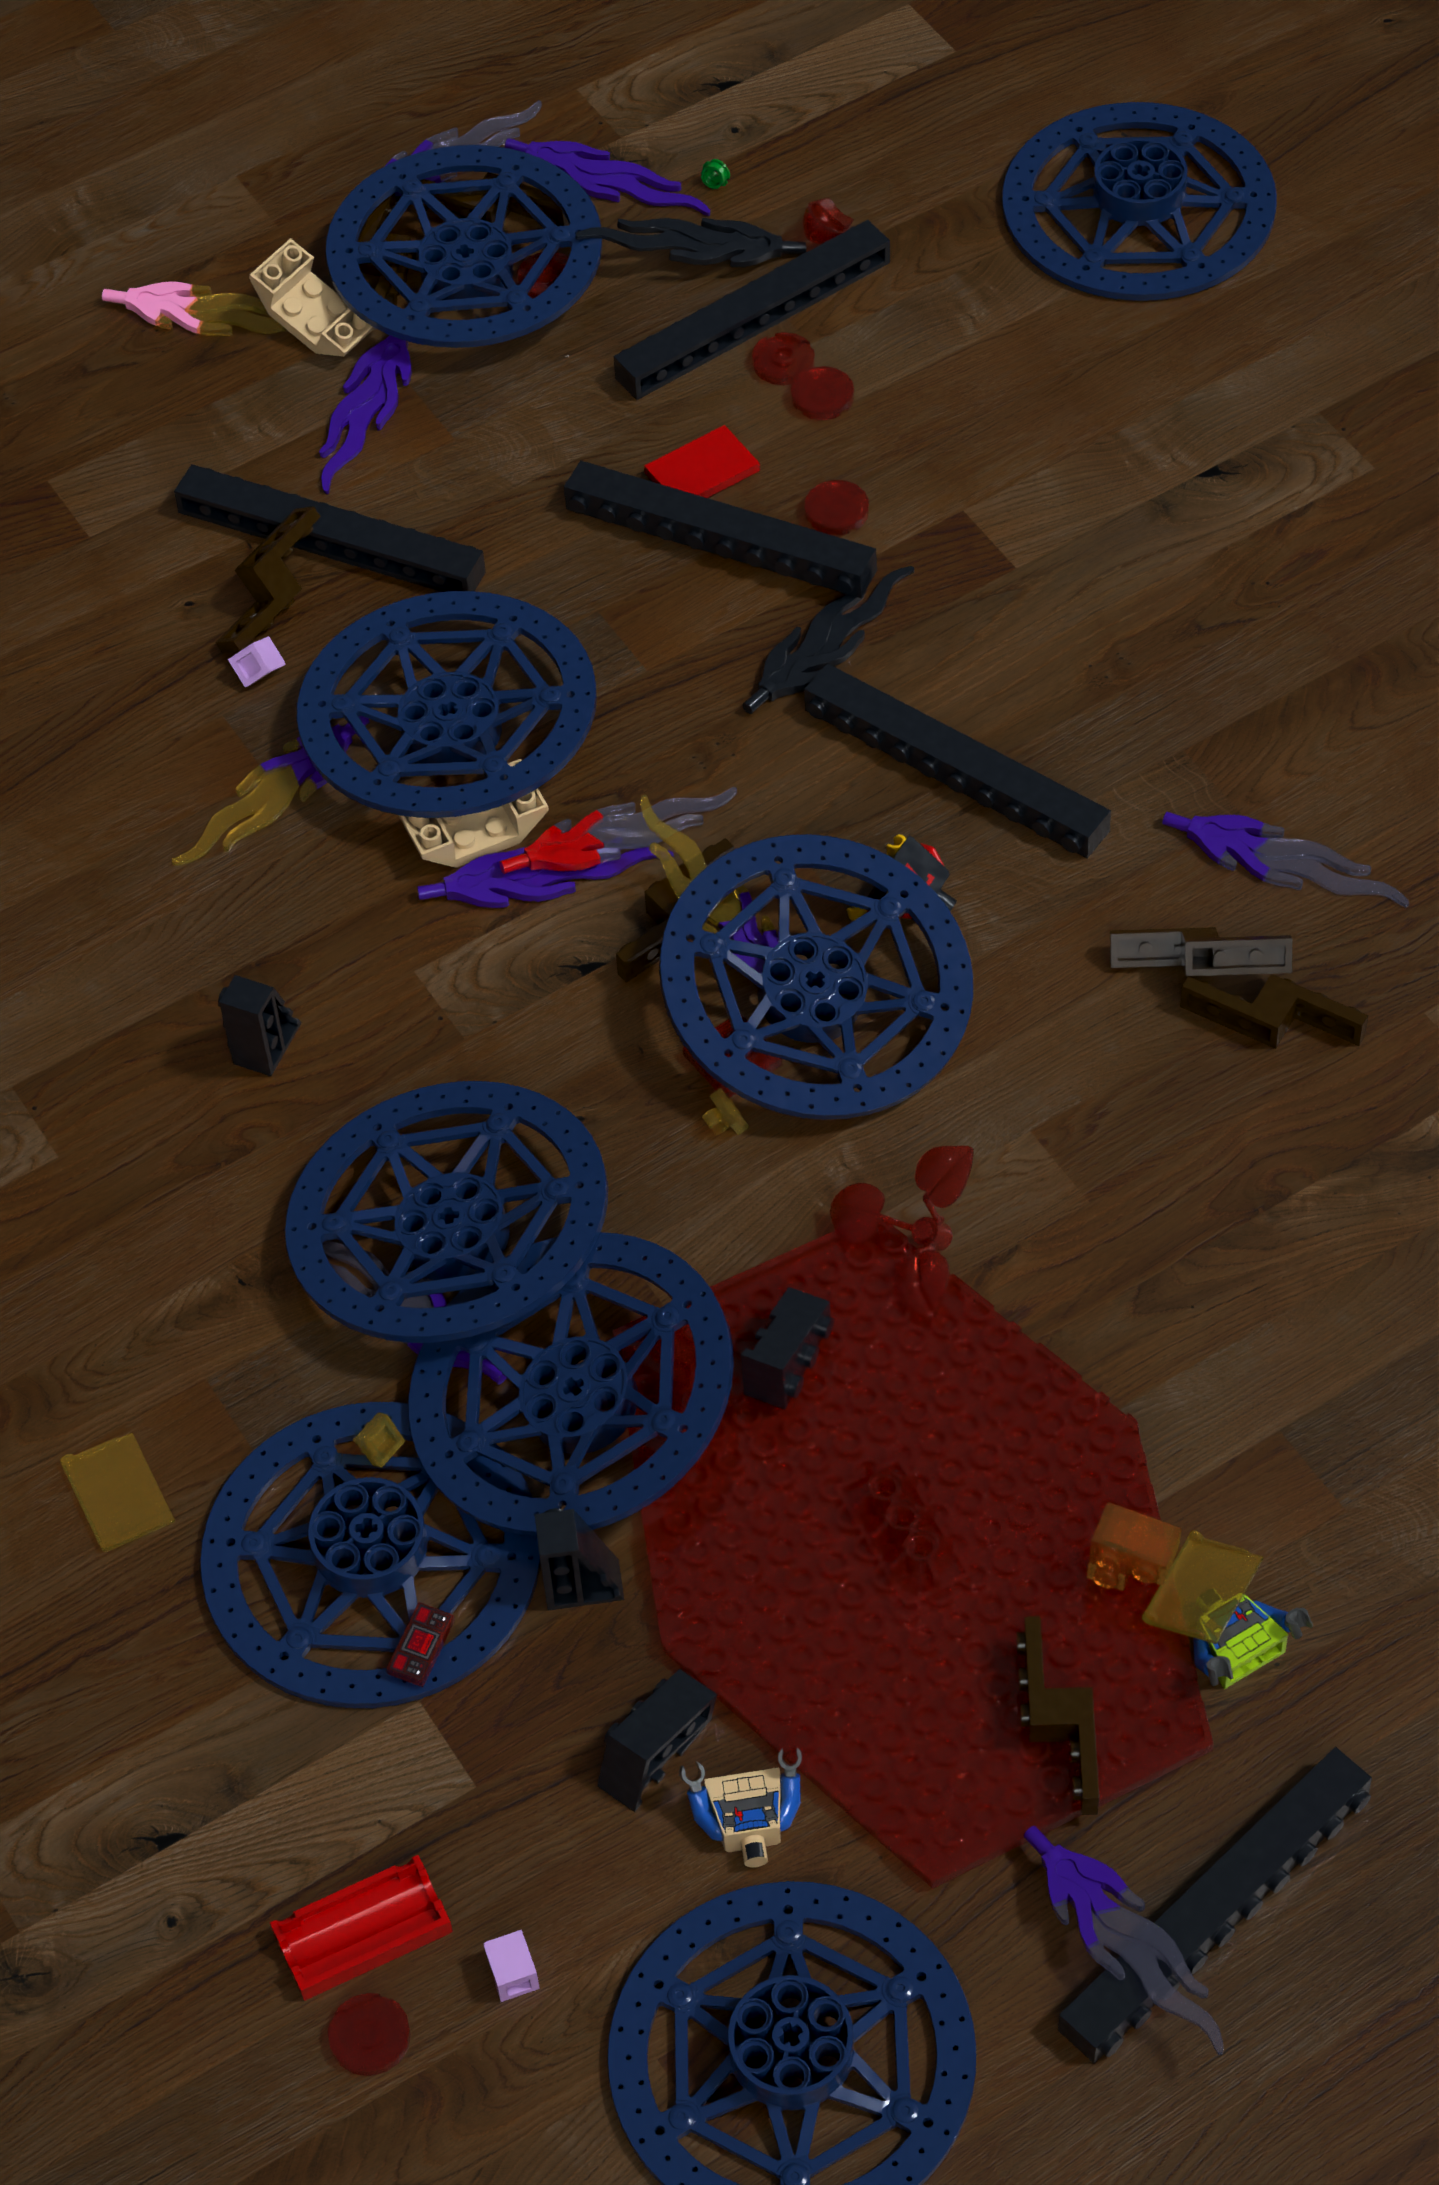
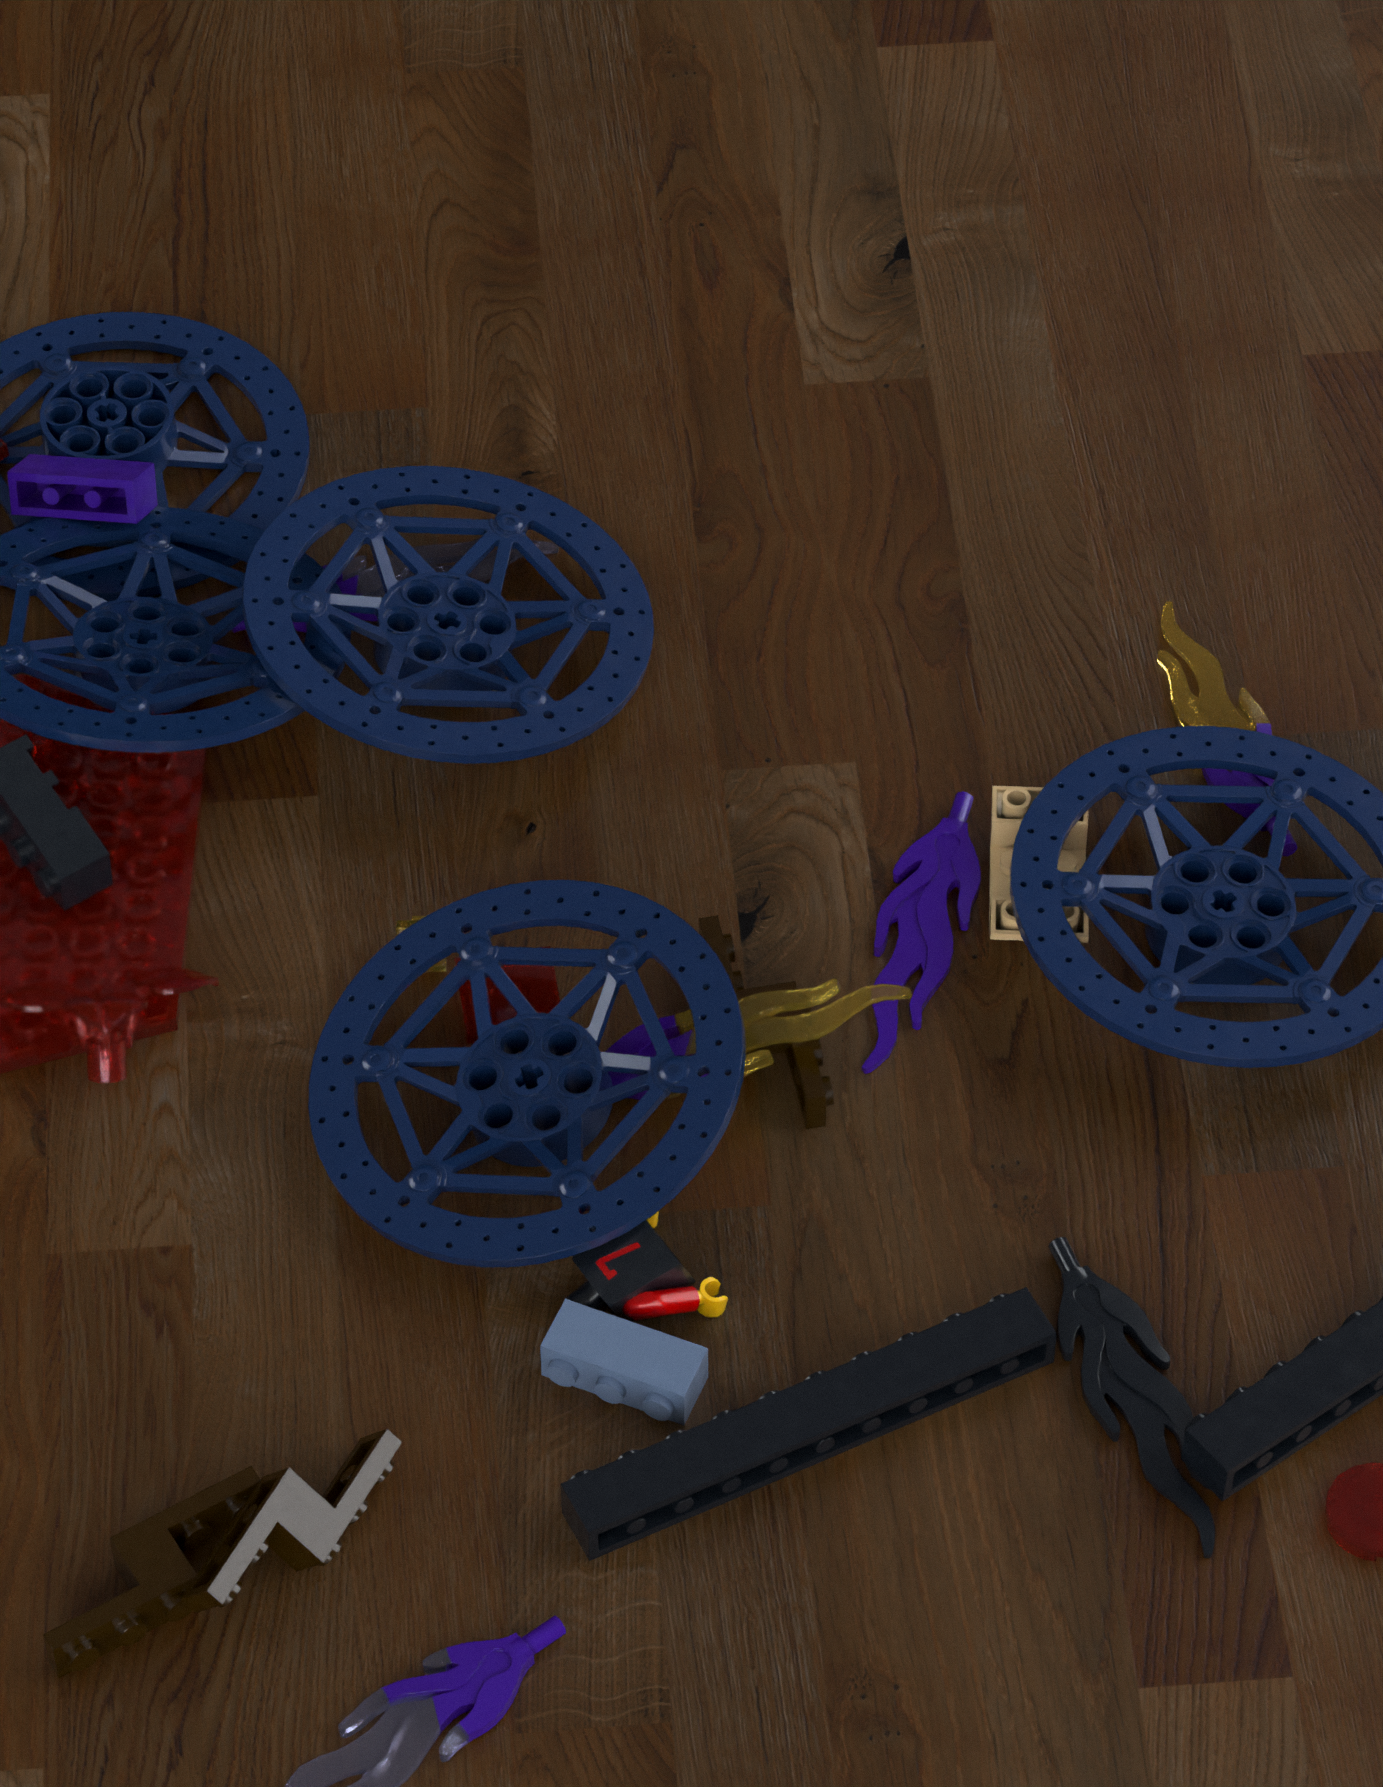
camera: 115 degrees right, 5 degrees down
(117, 1491) = (342, 298): clear yellow piece -> none
(256, 1024) = (836, 553): black wedge -> none
(379, 1440) = (219, 478): clear yellow tile -> none
(450, 1504) = (82, 488): none -> dark purple brick
(607, 831) = (933, 945): piece -> none
(976, 862) = (624, 1362): none -> sand blue brick

